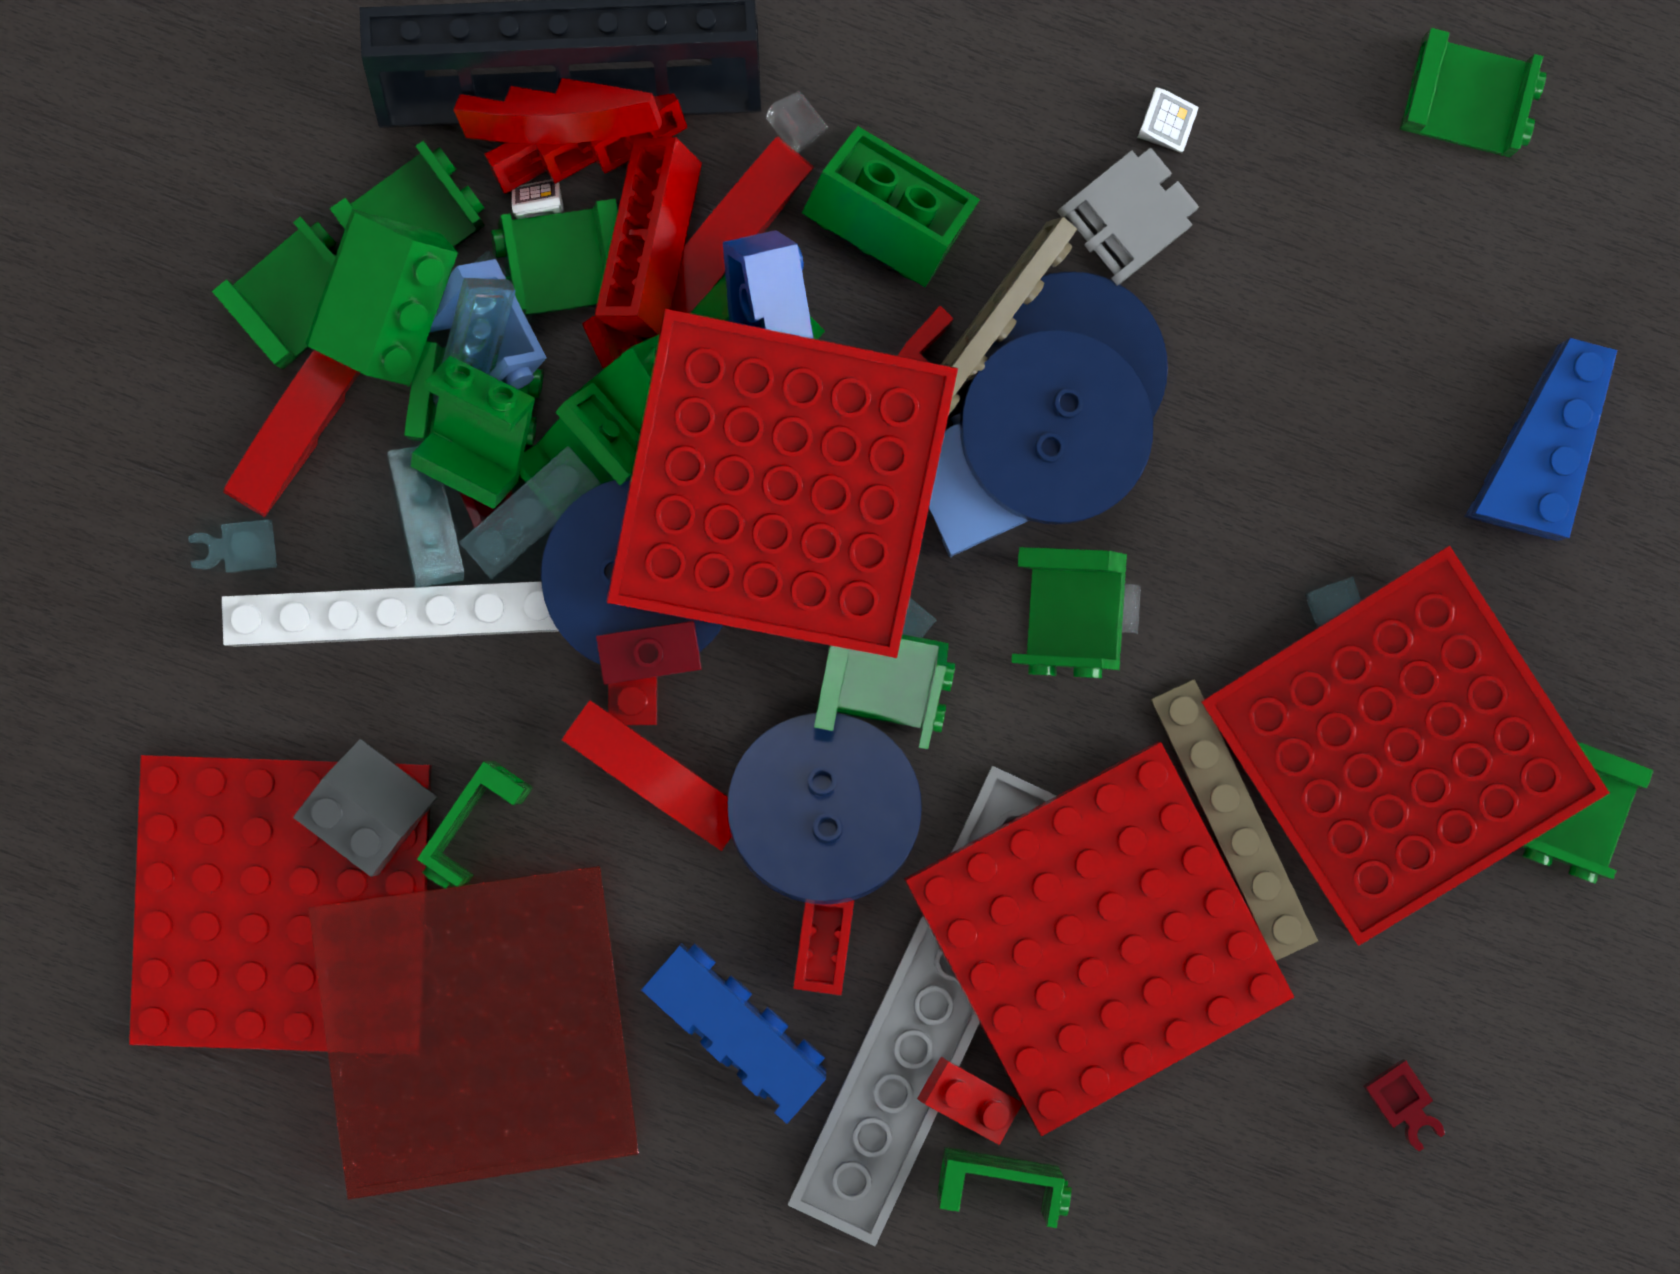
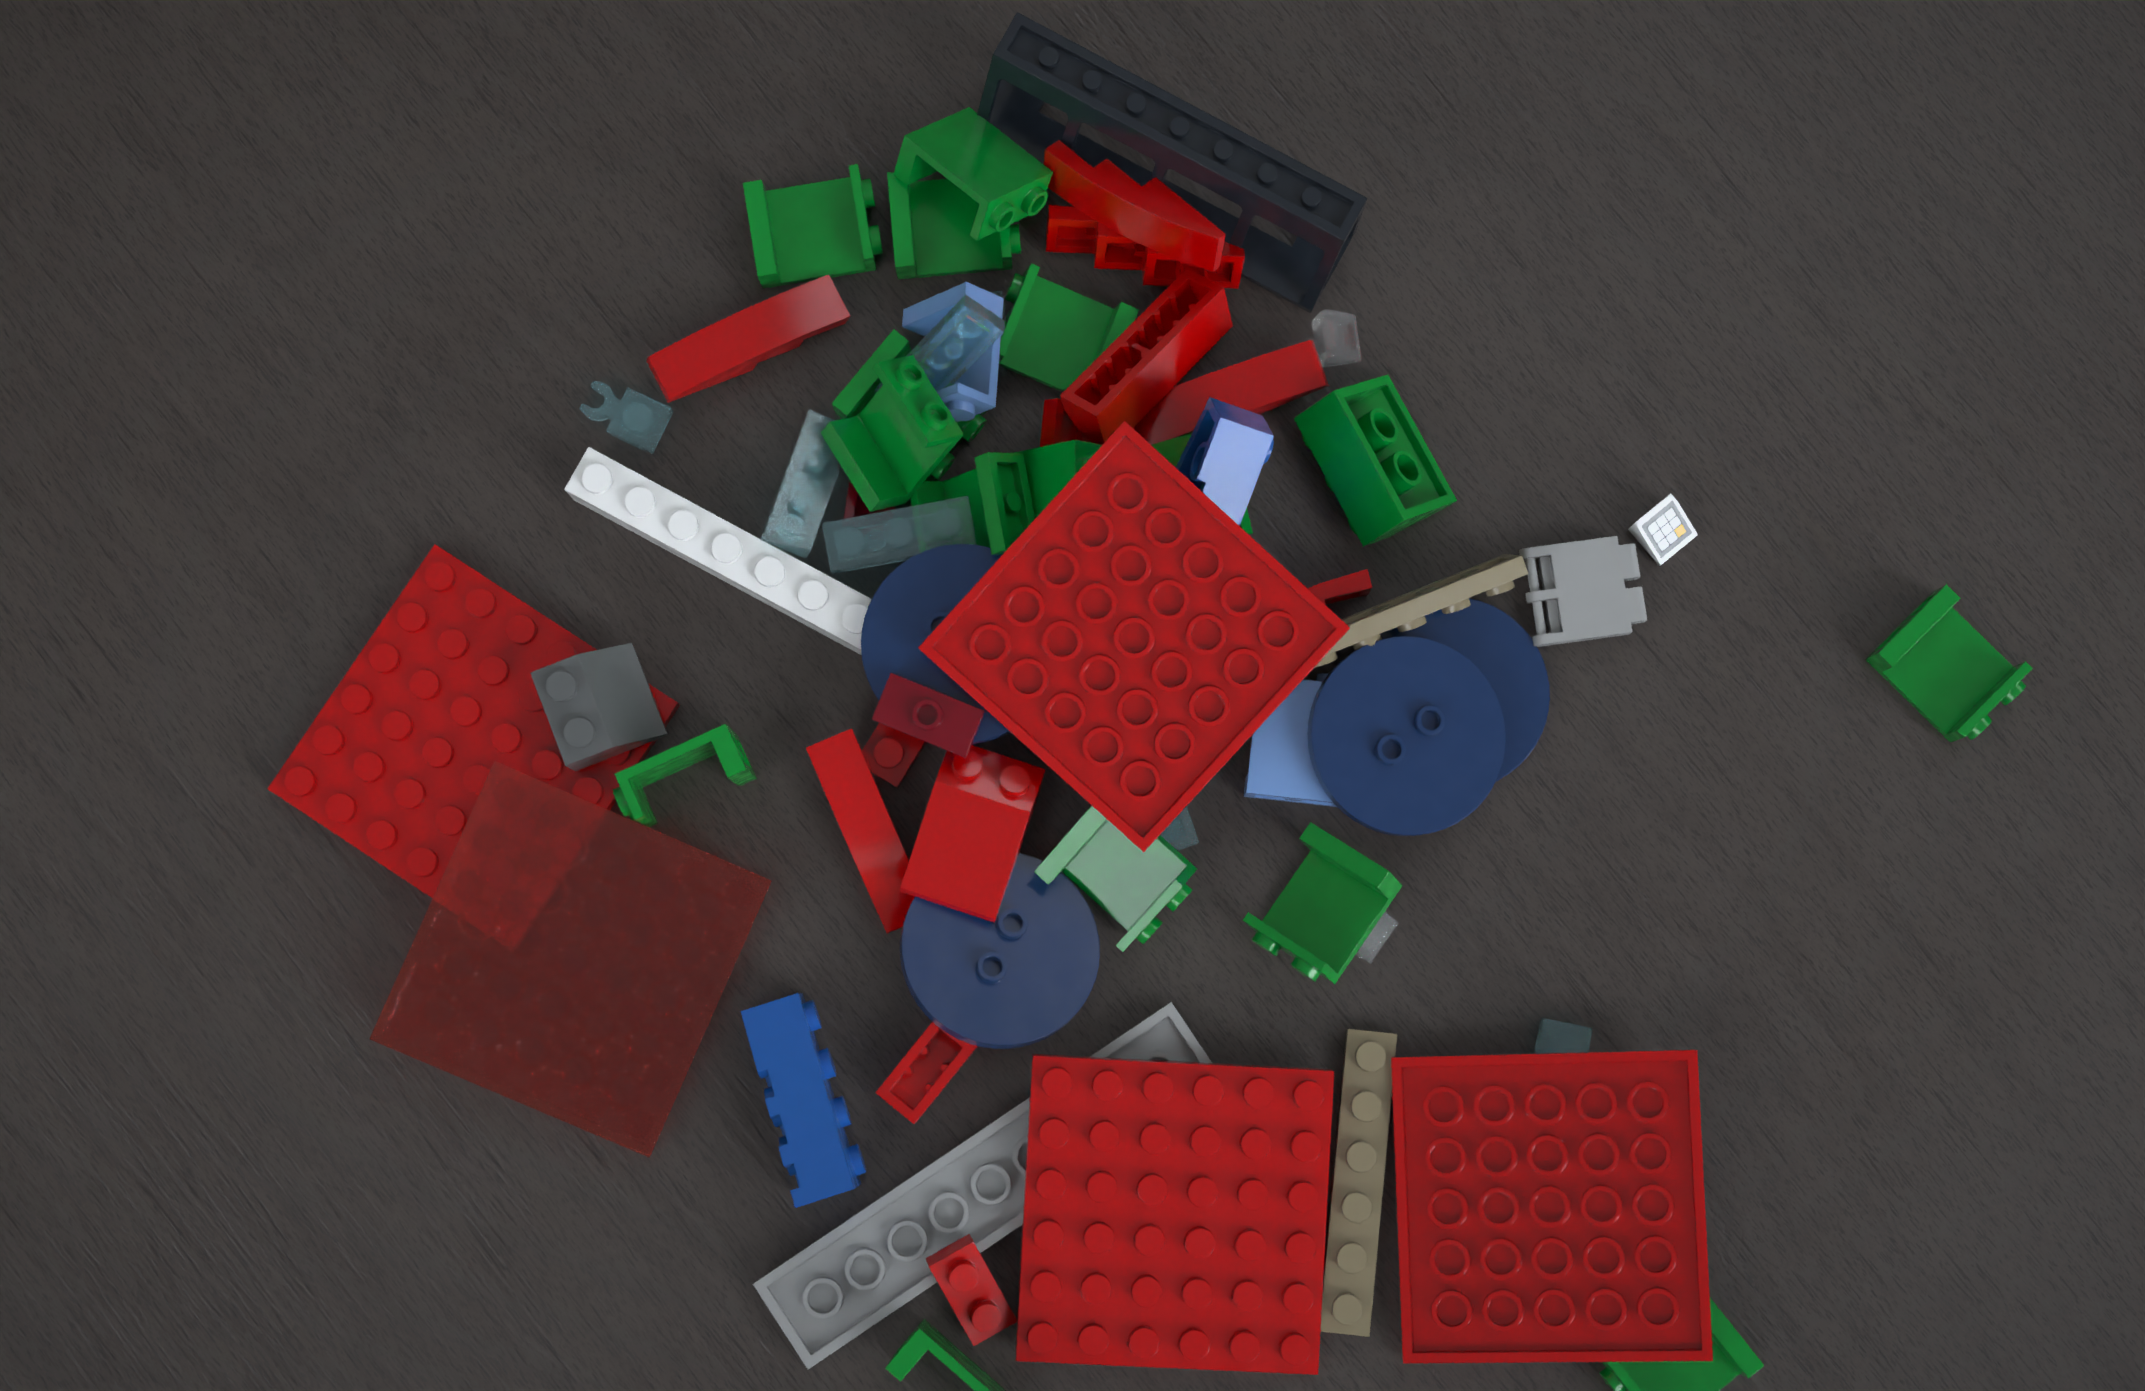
camera: 30 degrees right, 5 degrees down
(382, 296) = (885, 271): green slope -> none
(405, 155) = (981, 164): none -> green panel
(537, 199) = (1070, 272): white slope -> none
(743, 725) = (973, 831): none -> red slope
(1548, 451) = (1832, 1022): blue wedge -> none

